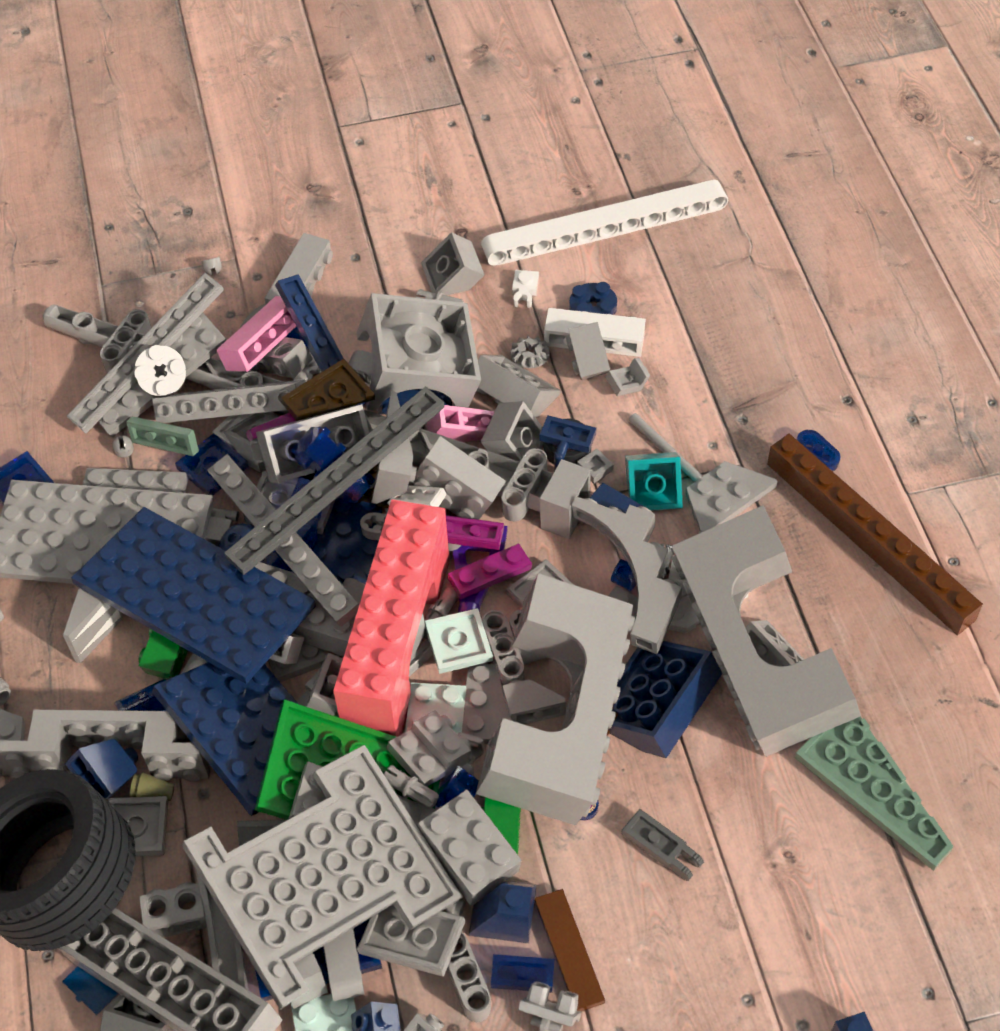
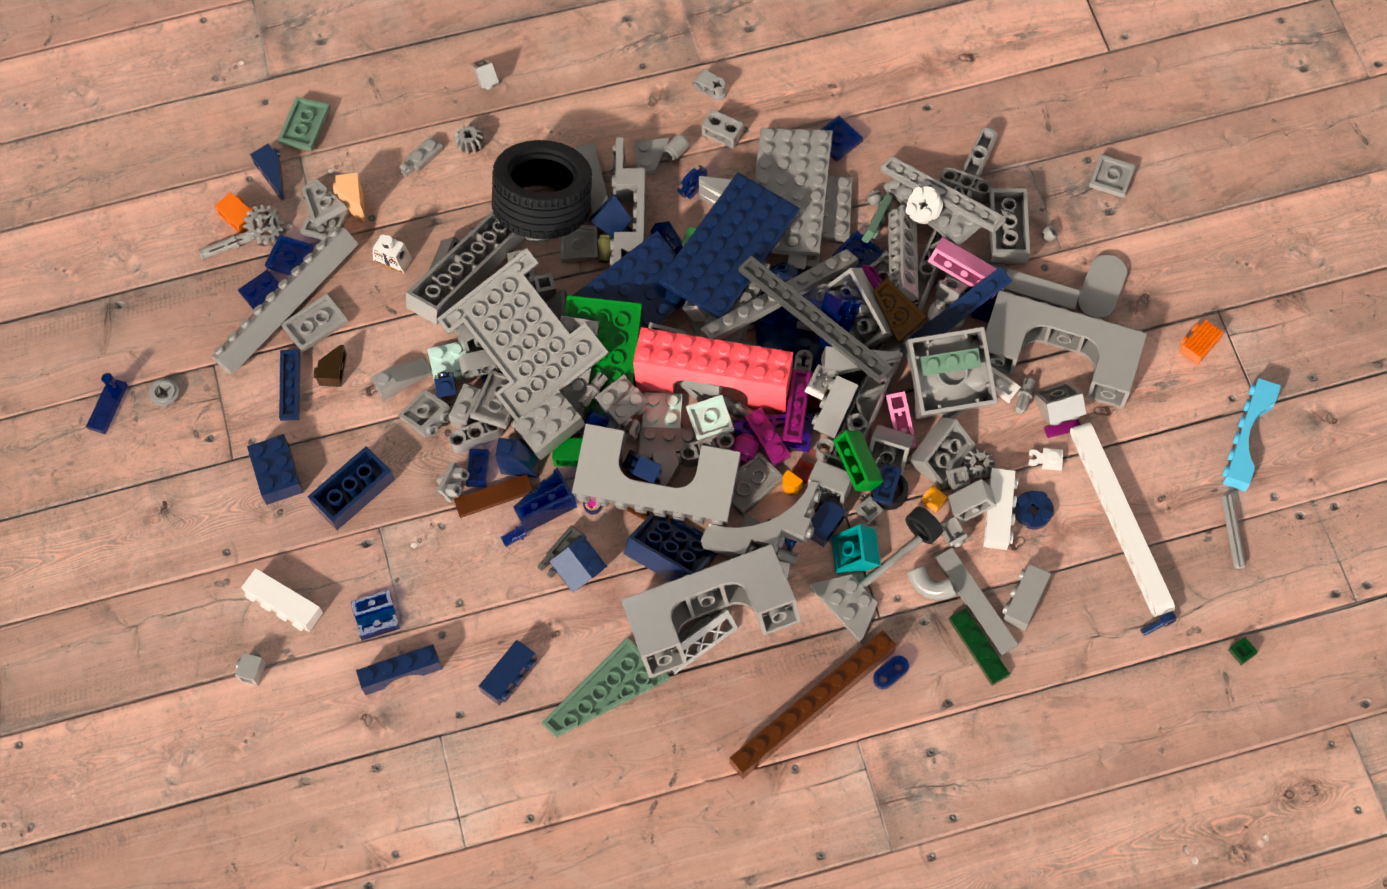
camera: 90 degrees right, 10 degrees up
(59, 658) = (691, 182): none -> clear blue plate
(140, 201) = (1112, 176): none -> light grey plate
(225, 311) = (1011, 240): none -> light grey brick
(290, 219) = (1102, 286): none -> light grey tile
(380, 138) = (1201, 341): none -> orange brick
(389, 210) = (1108, 346): none -> light grey arch
(414, 335) = (950, 361): none -> sand green plate
(416, 990) = (463, 406): none -> light grey brick
(486, 281) = (1061, 429): none -> magenta window
(502, 599) = (746, 445): none -> magenta head
(538, 536) = (803, 470): none -> clear red plate
(542, 118) = (1241, 467): none -> medium azure arch
(545, 449) = (858, 461): none -> green brick
(550, 705) = (642, 466): none -> dark blue brick
(551, 371) = (958, 477): none -> light grey plate
(556, 549) = (791, 483): none -> light orange brick
(579, 397) = (935, 499): none -> light orange brick
(586, 863) = (545, 503): none -> clear blue wedge
(620, 132) = (1233, 532): none -> light grey axle
(621, 401) = (924, 525): none -> black tyre
(641, 920) = (513, 536): none -> clear blue pin
(687, 814) = (578, 564): none -> slope
(704, 403) = (930, 588): none -> light grey cylinder
(711, 312) = (1025, 597): none -> light grey brick
(715, 364) = (976, 602): none -> light grey tile
(732, 192) = (1166, 620): none -> dark blue bar
(764, 134) = (1243, 651): none -> dark green plate
(774, 364) = (979, 646): none -> dark green plate
(862, 916) = (508, 672): none -> dark blue brick

